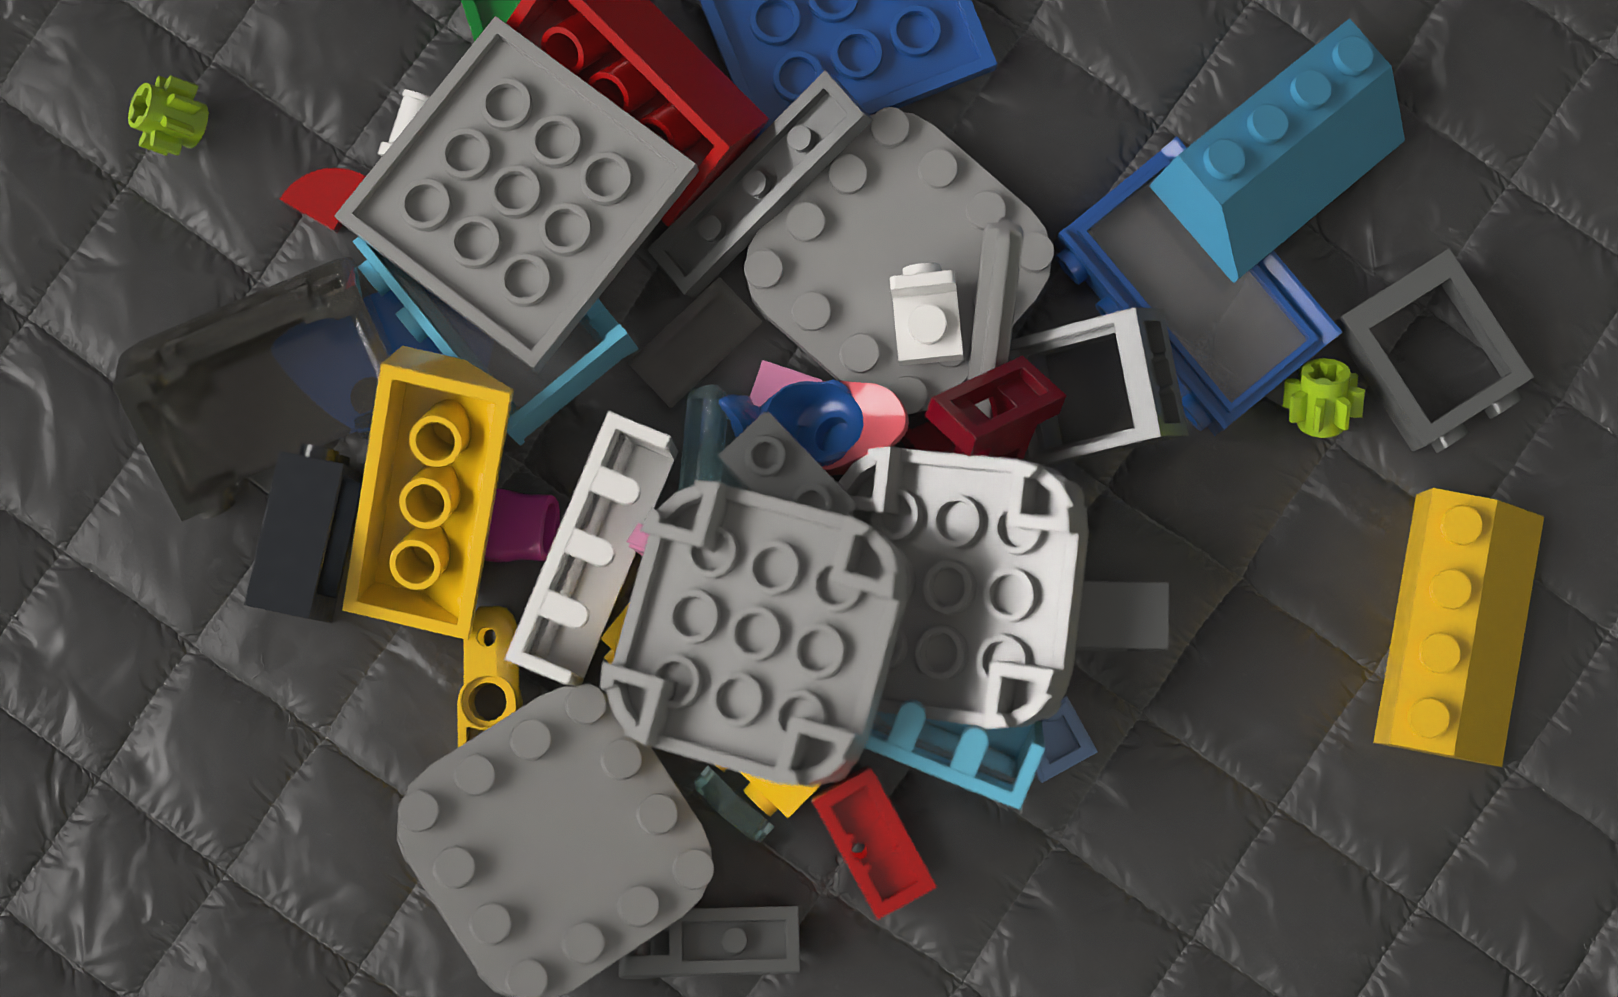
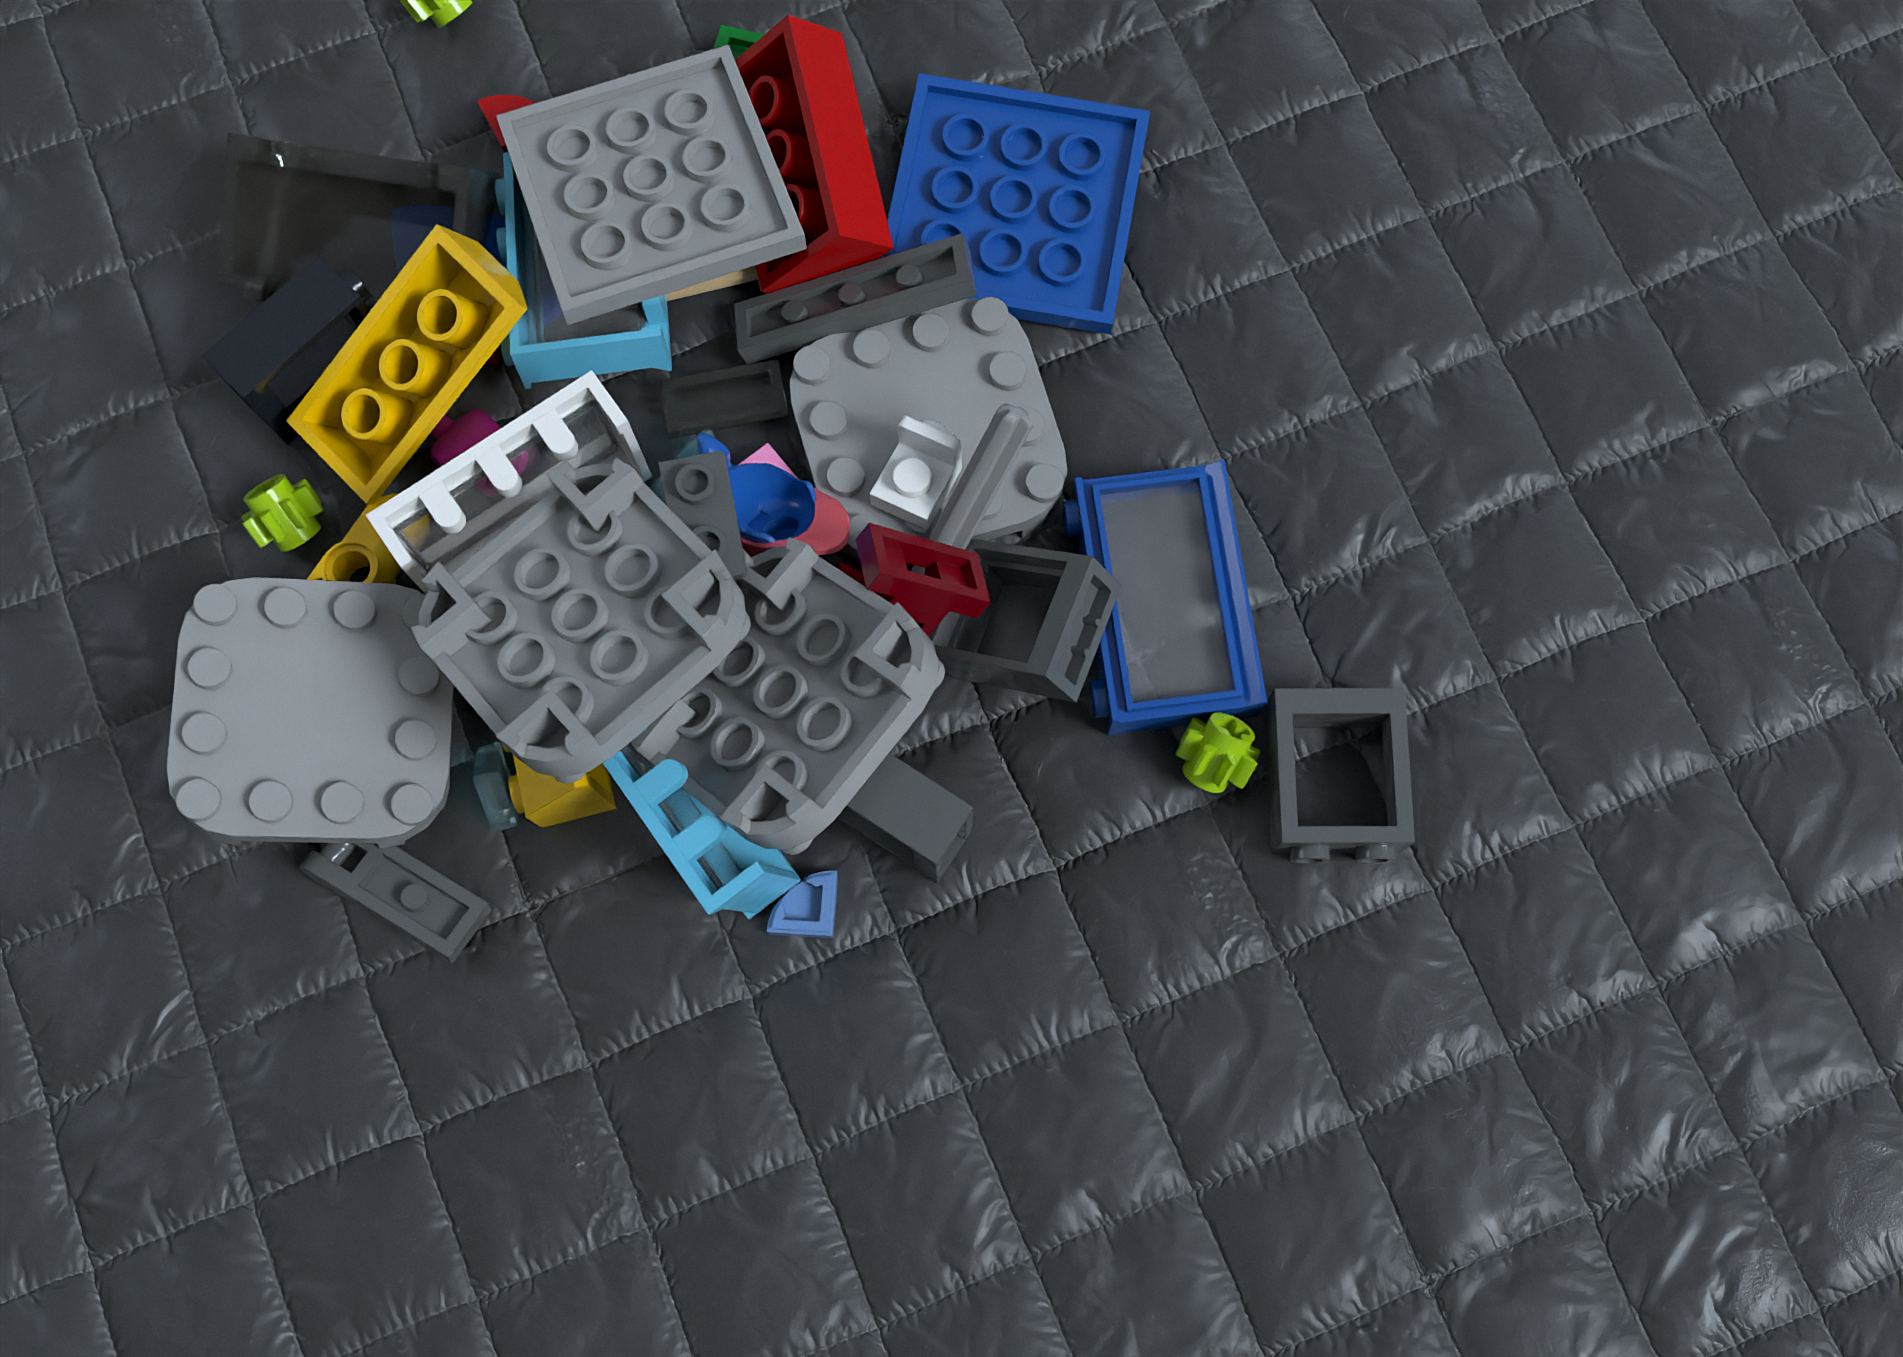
camera: 30 degrees right, 10 degrees down
(385, 689) = (282, 513): none -> lime gear
(889, 864) = (585, 896): red window -> none
(1285, 151) = (1309, 522): dark azure slope -> none
(1459, 627) = (1220, 1028): yellow slope -> none

